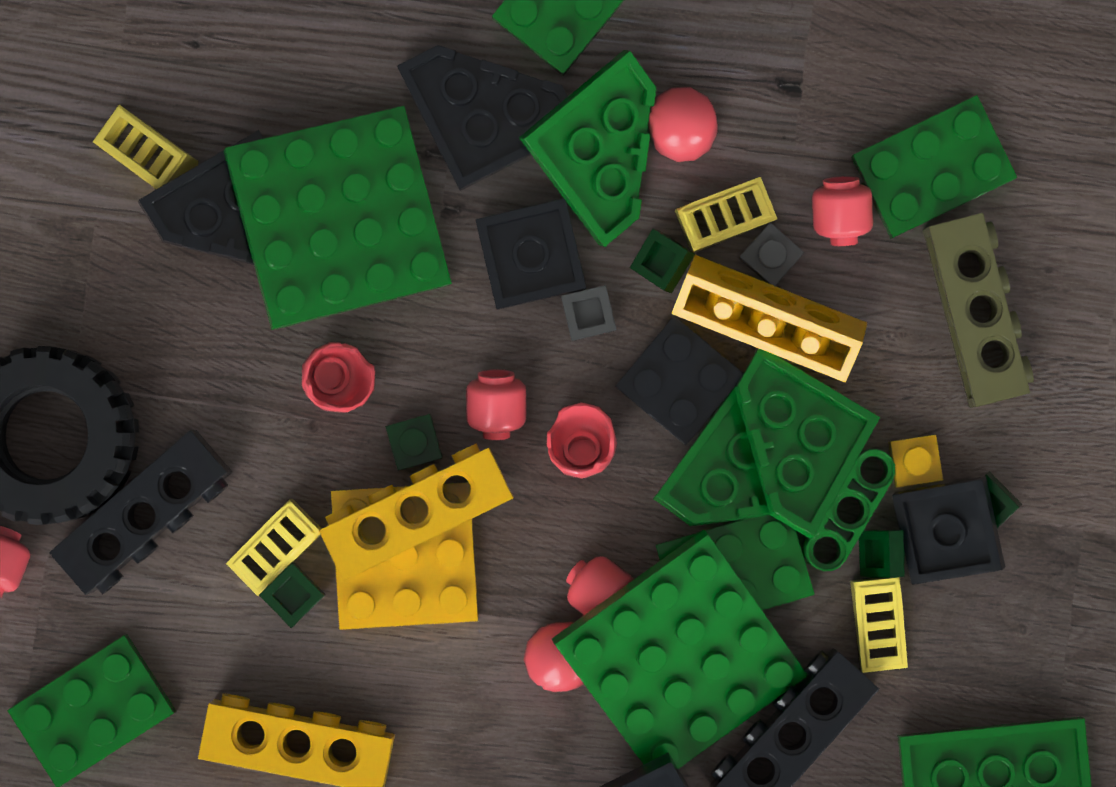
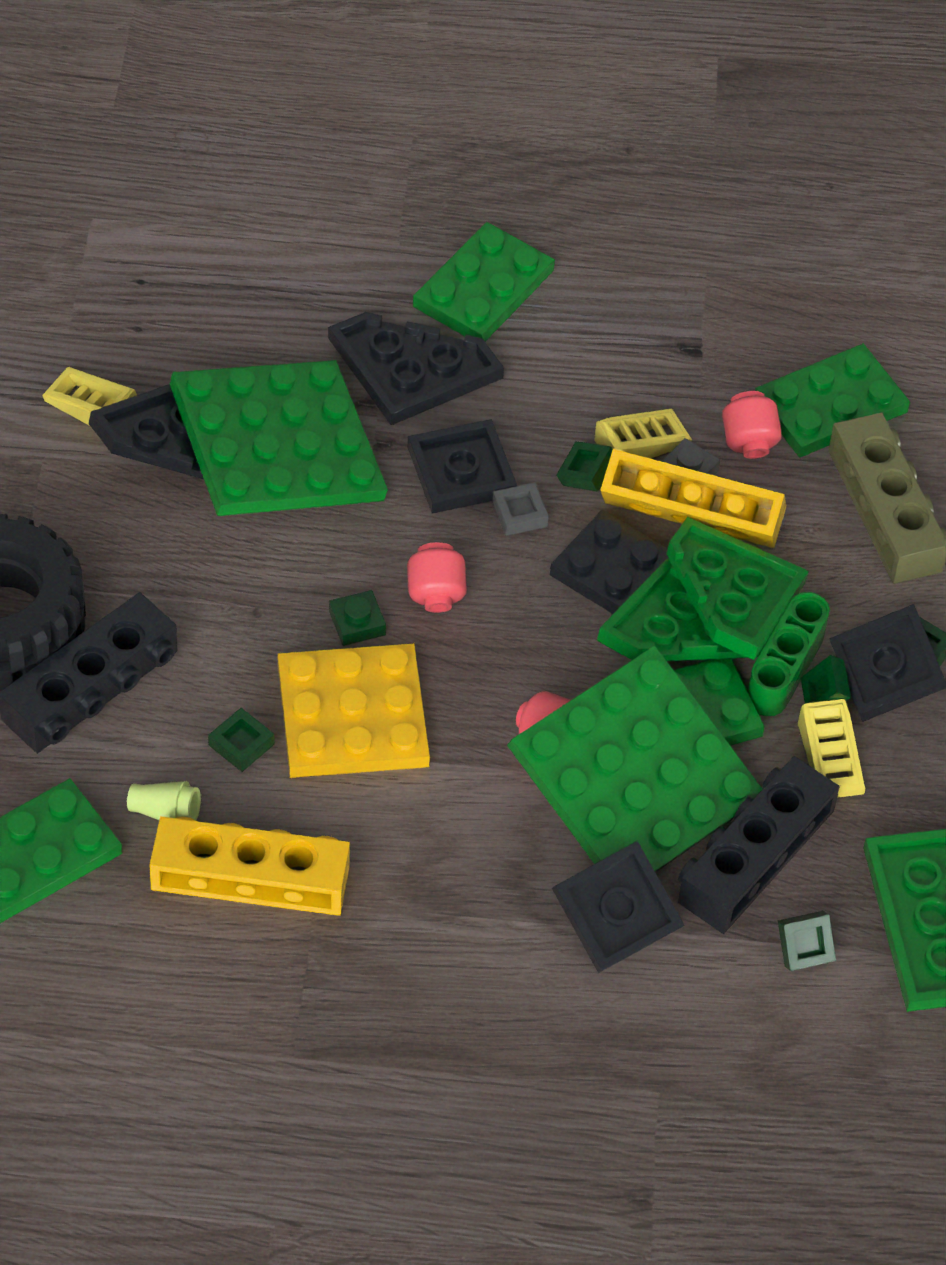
camera: 10 degrees left, 35 degrees down
(218, 667) = (165, 800): none -> yellowish green cone
(301, 520) = (242, 679): light yellow slope -> none
(337, 377) = (281, 559): coral hair -> none
(355, 555) = (350, 668): yellow brick -> none
(546, 663) = (510, 790): coral hair -> none
(581, 440) = (523, 600): coral hair -> none
(599, 146) = (519, 377): green plate -> none
(682, 124) = (595, 371): coral hair -> none
(916, 460) = (846, 615): yellow plate -> none

